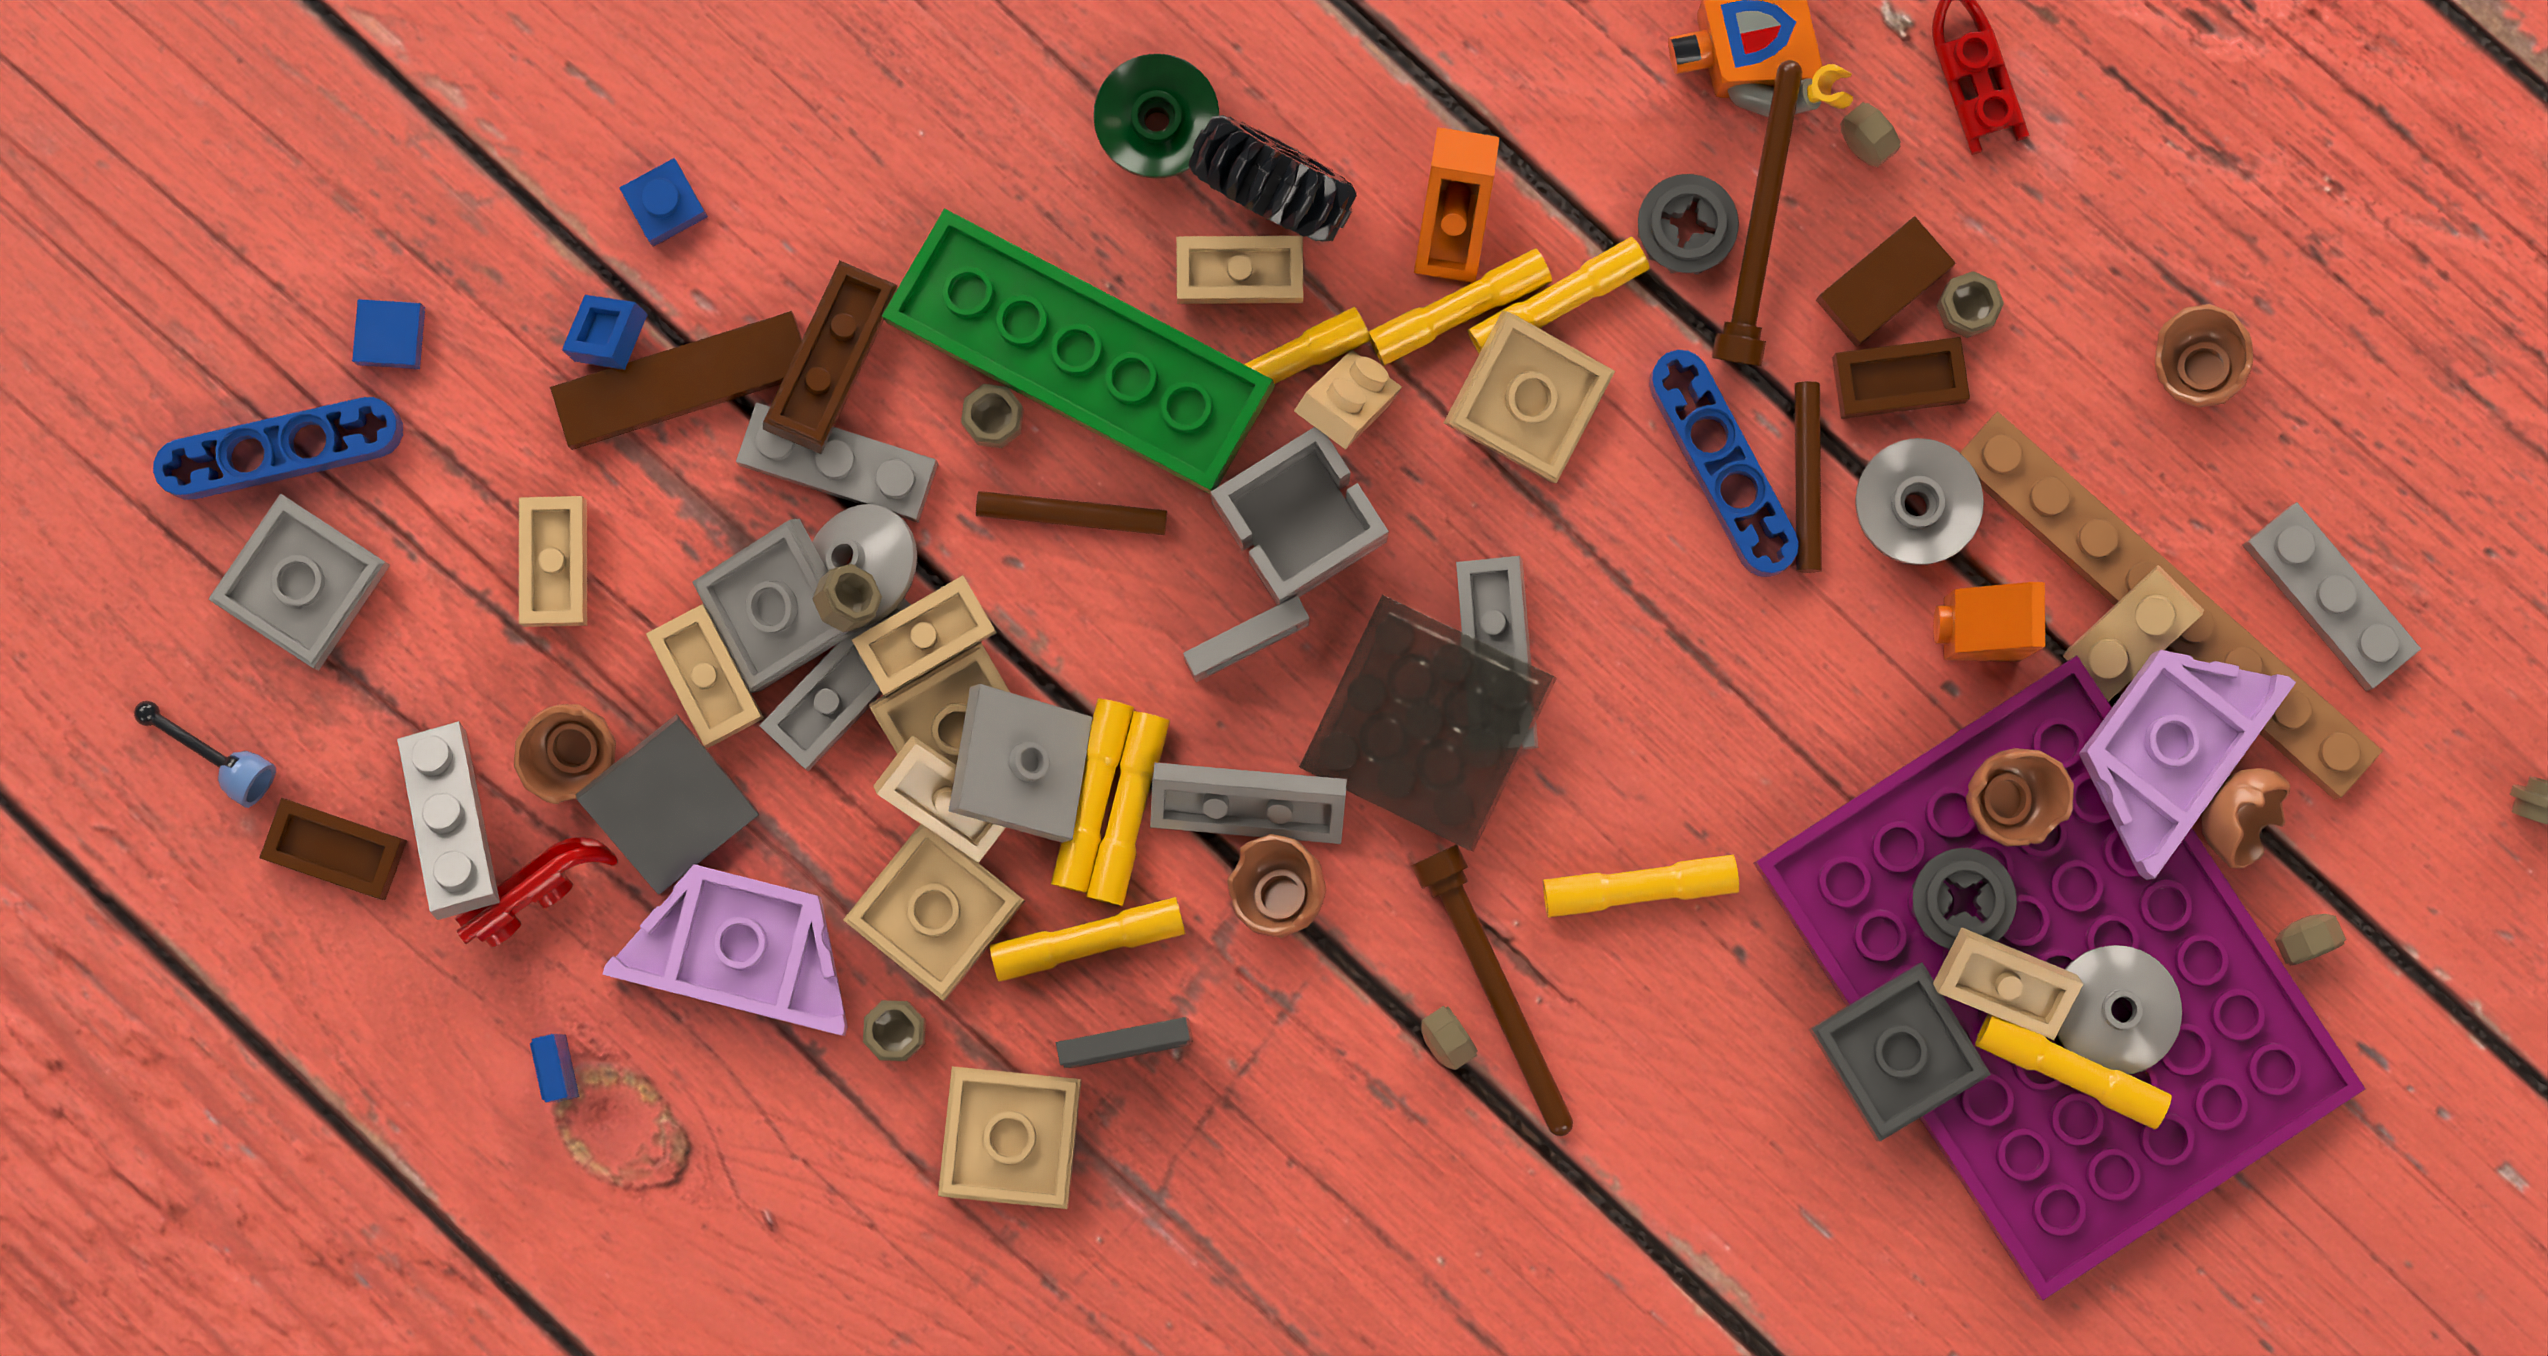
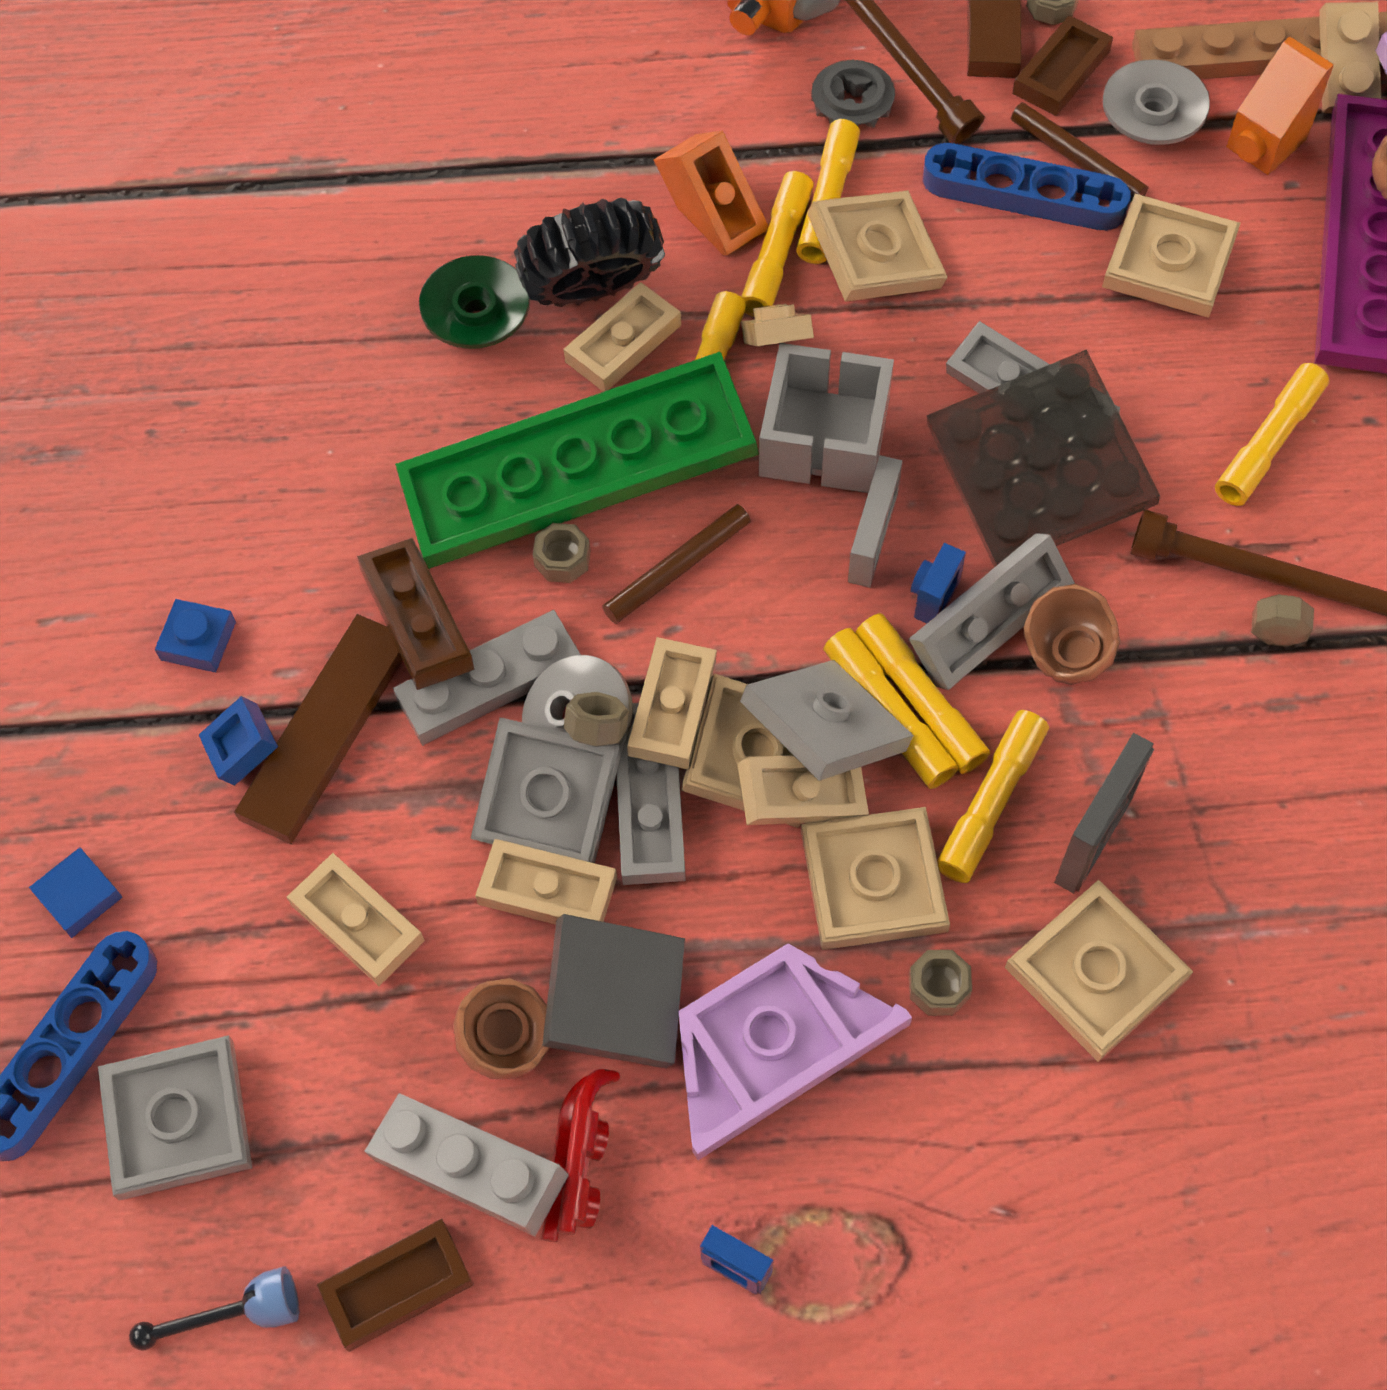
camera: 45 degrees left, 20 degrees down
(1232, 737) = (937, 582): none -> blue plate
(1756, 652) = (1171, 255): none -> tan plate

